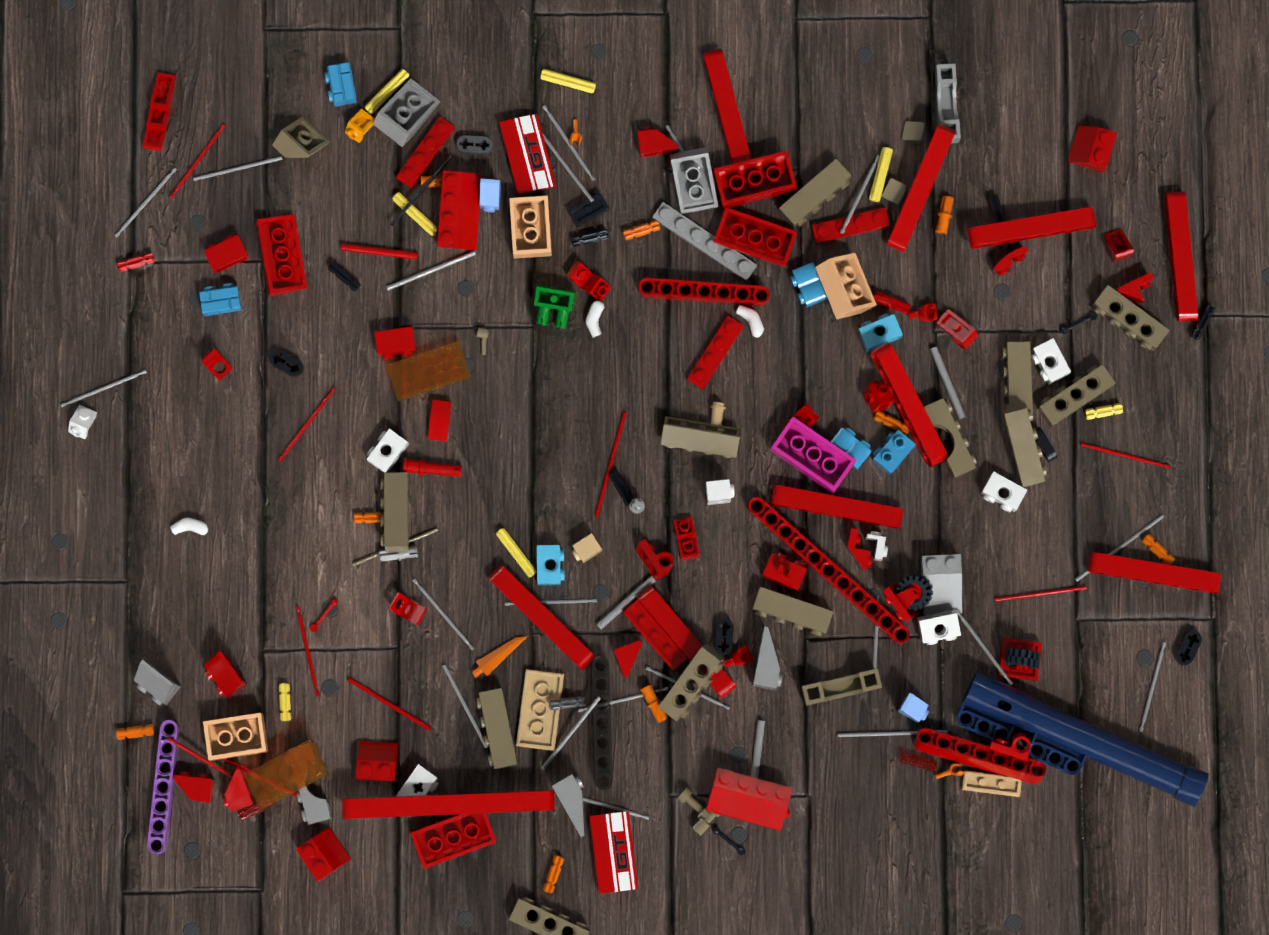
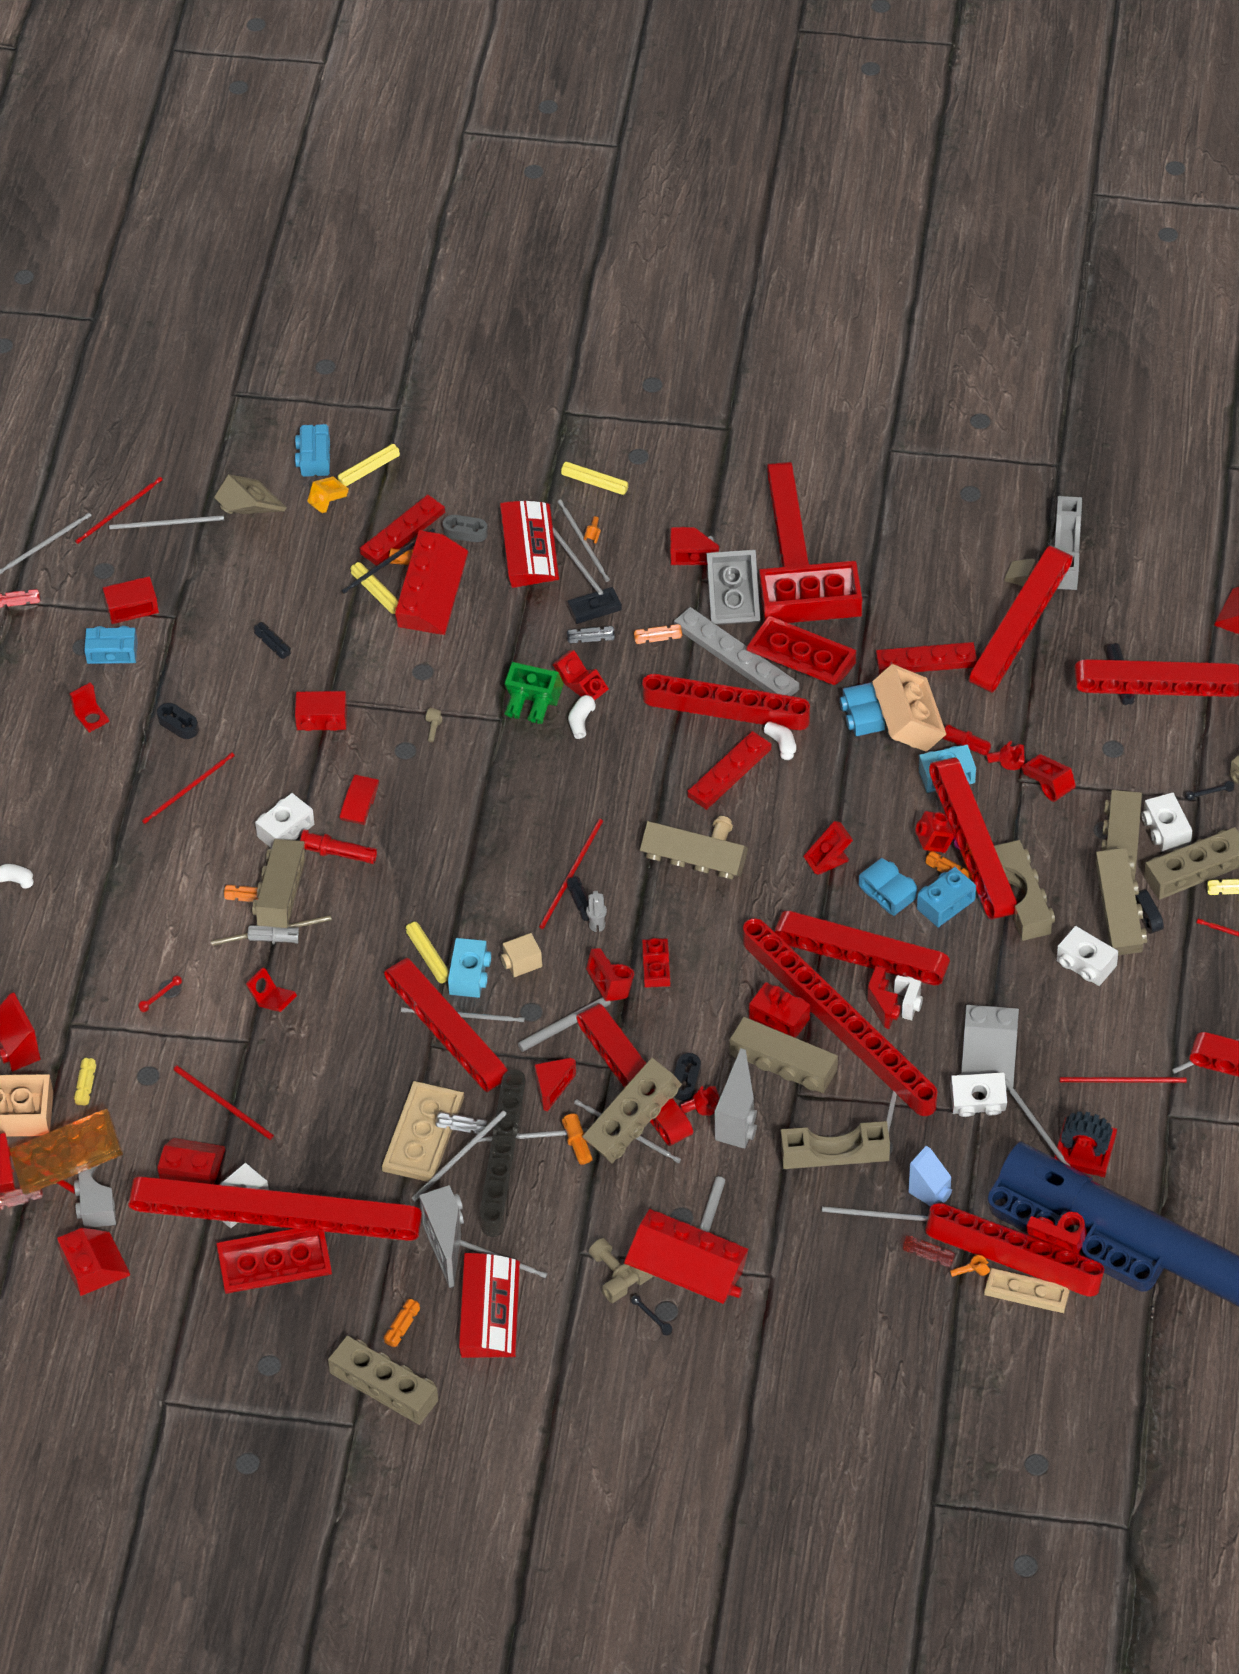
camera: 10 degrees right, 30 degrees down
(159, 111) = (85, 456): red slope -> none
(281, 254) = (198, 610): red slope -> none
(307, 651) = (129, 1031): red piece -> none
(379, 251) = (322, 621): red bar -> none
(406, 112) = (385, 485): light grey slope -> none
(428, 371) = (356, 746): clear orange plate -> none
(431, 270) = (383, 647): light grey axle -> none
(443, 614) = (318, 1011): light grey piece -> none
(464, 705) = (324, 1117): light grey piece -> none
(490, 195) = (473, 570): light blue slope -> none
(493, 659) = (370, 1068): orange bar -> none
(498, 728) = (361, 1142): dark tan brick -> none
(530, 227) = (517, 610): light nougat brick -> none
(655, 635) = (591, 1060): red plate -> none
(719, 492) = (707, 907): white brick -> none
(813, 455) = (837, 883): dark pink slope -> none
(814, 193) = (885, 617): dark tan brick -> none
(860, 194) = (942, 625): light grey piece -> none
(881, 173) = (972, 610): light yellow axle -> none
(894, 191) = (986, 626): dark tan slope -> none
(909, 596) = (945, 1046): plate -> none
(944, 215) = (1048, 659): orange axle -> none
(947, 382) = (1028, 834): light grey bar -> none
(1006, 263) = (1133, 707): red slope -> none

